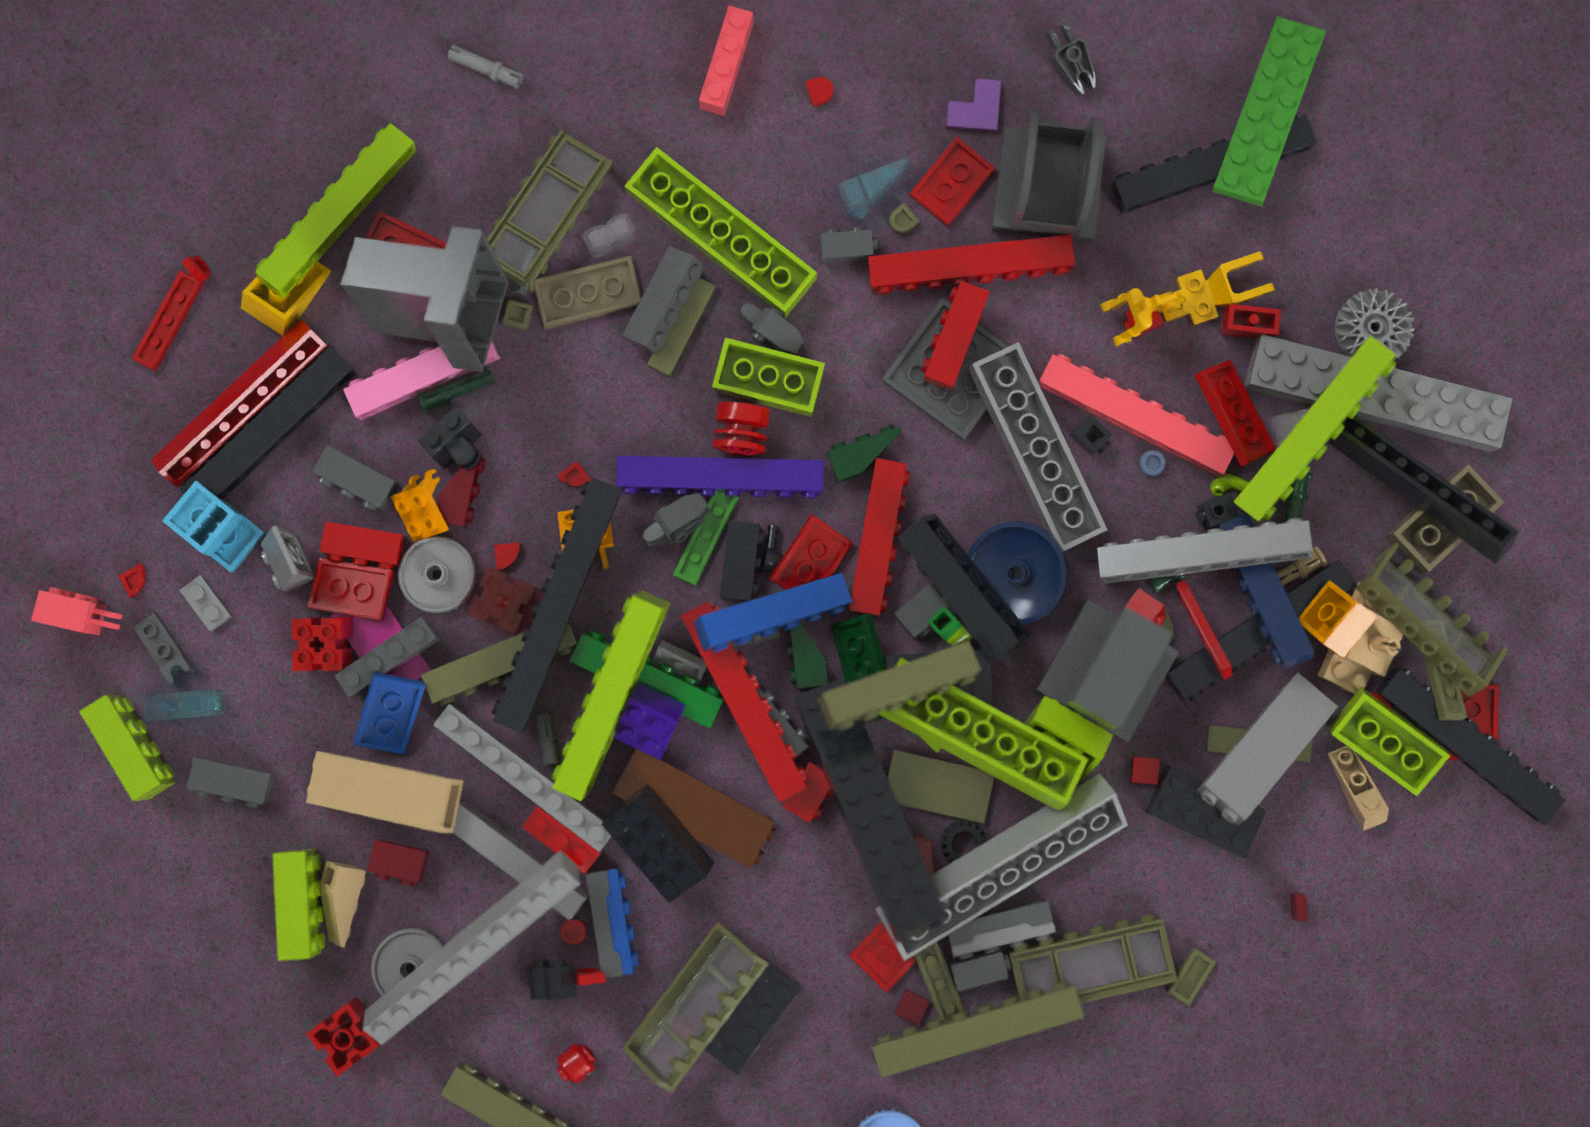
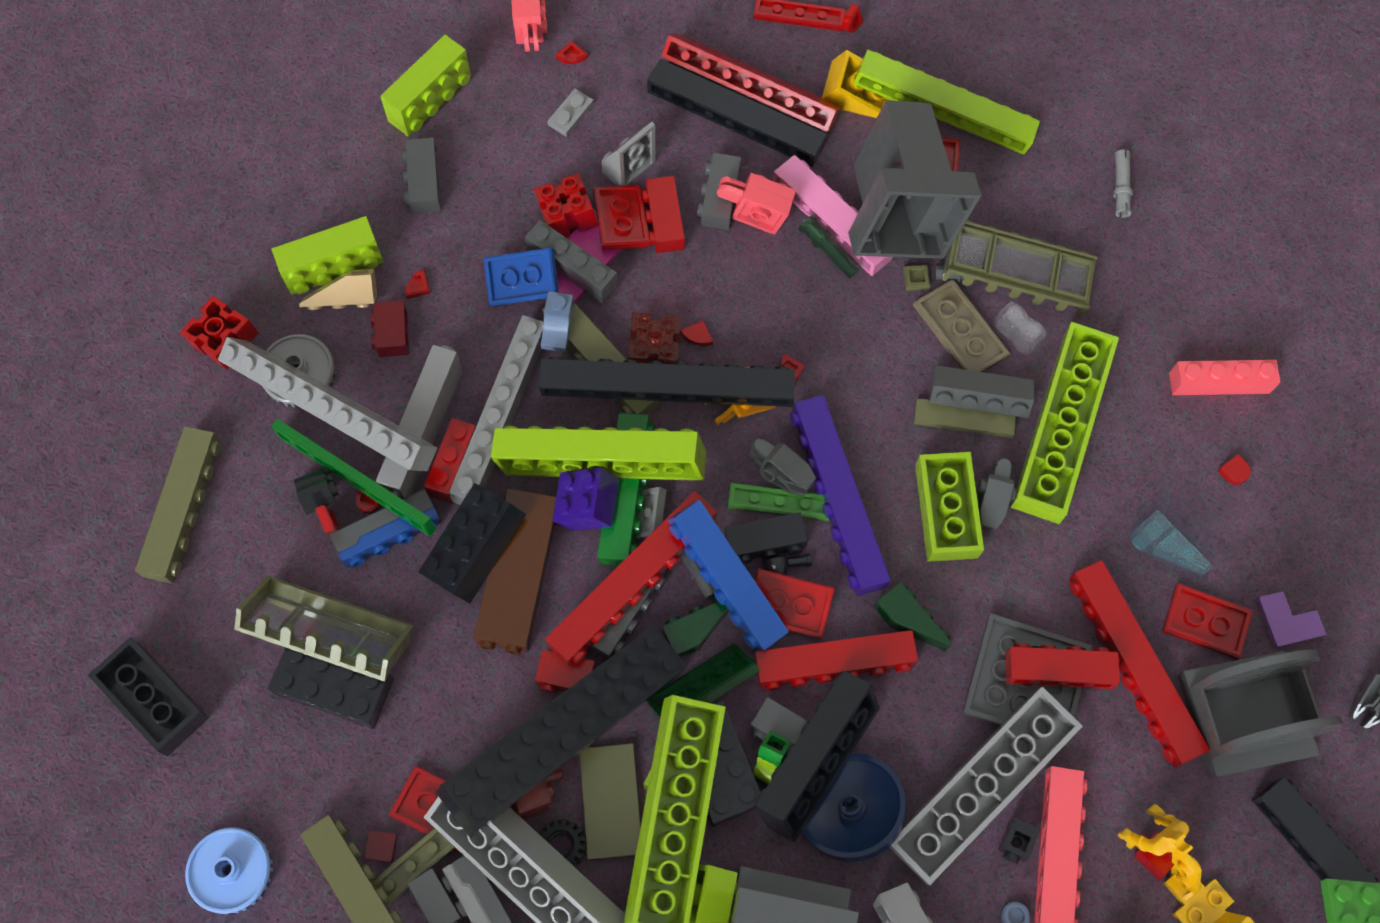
camera: 70 degrees right, 15 degrees down
(163, 648) = (520, 92): dark grey plate -> none
(183, 705) = (477, 121): clear light blue slope -> none
(214, 527) = (637, 91): medium azure bracket -> none
(355, 822) = (417, 285): none -> red tile
(384, 792) = (448, 293): tan brick -> none
(386, 445) = (758, 201): none -> coral brick
(417, 573) = (659, 282): light grey wheel -> none
(419, 508) = (712, 244): light orange plate -> none
(452, 441) = (783, 254): black brick -> none
(455, 692) = (557, 321): none -> sand blue arch
(457, 497) = (733, 276): dark red slope -> none
(546, 738) = (544, 418): dark grey axle -> none
(551, 940) = (354, 477): none -> green tile
(576, 1063) = (244, 539): red head -> none
(740, 431) = (891, 495): red wheel -> none
(847, 245) = (1102, 539): dark grey brick -> none
(899, 685) = (697, 709): olive brick -> none
(902, 219) = (1149, 586): olive tile -> none

